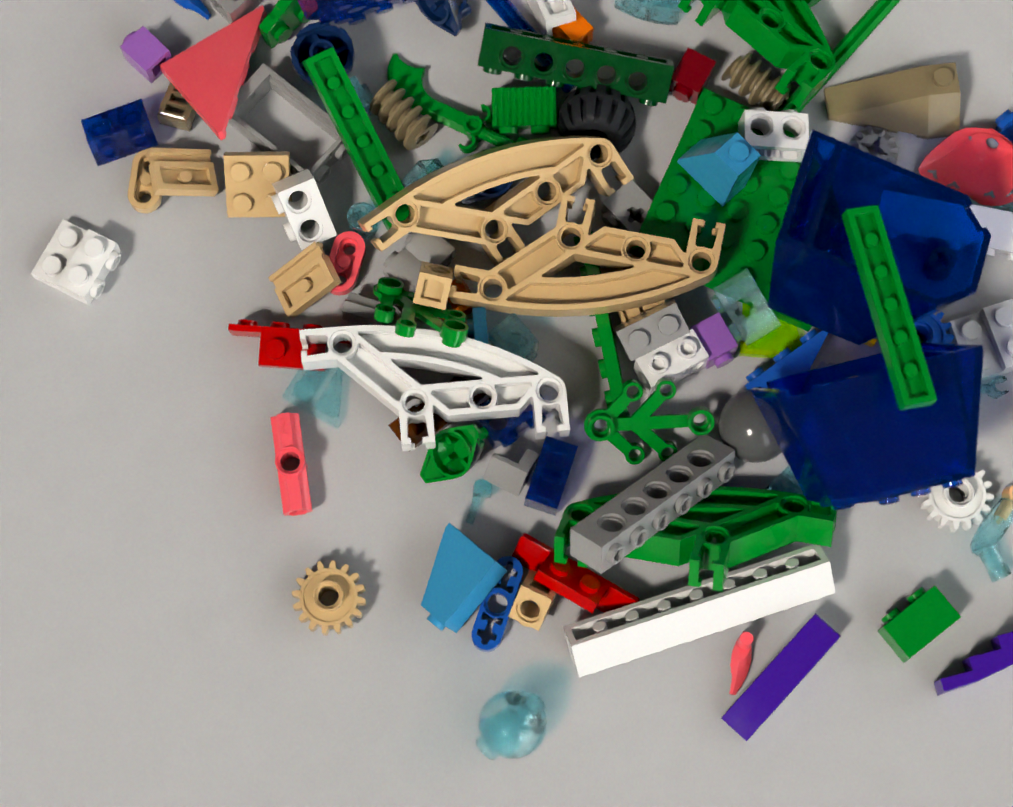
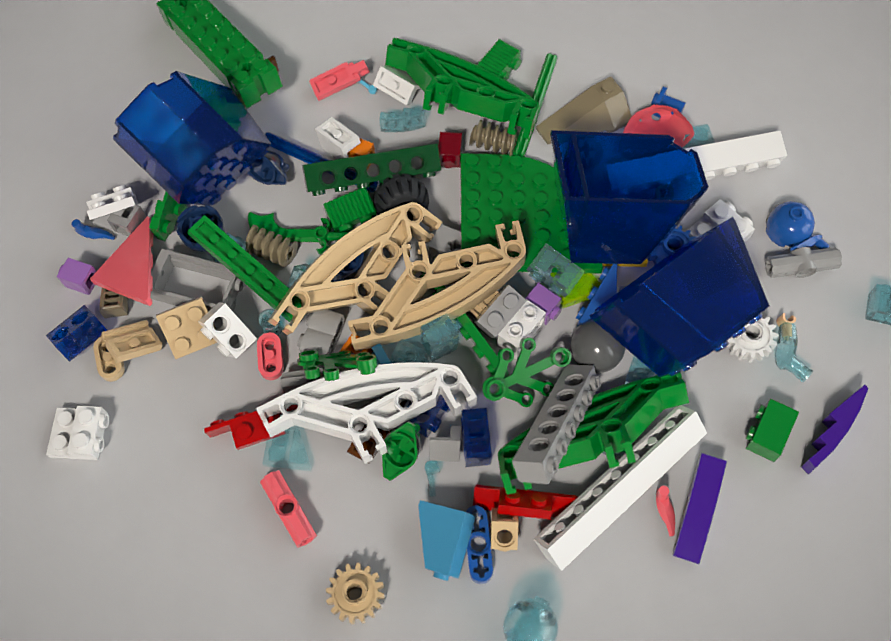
camera: 20 degrees left, 10 degrees down
(304, 279) = (246, 377): tan plate -> none
(433, 285) = (338, 341): tan brick -> none
(562, 331) = (440, 337): none -> clear light blue brick
(721, 165) = (497, 187): dark azure slope -> none
(774, 143) = (520, 161): white brick -> none
(889, 307) = (663, 215): green plate -> none

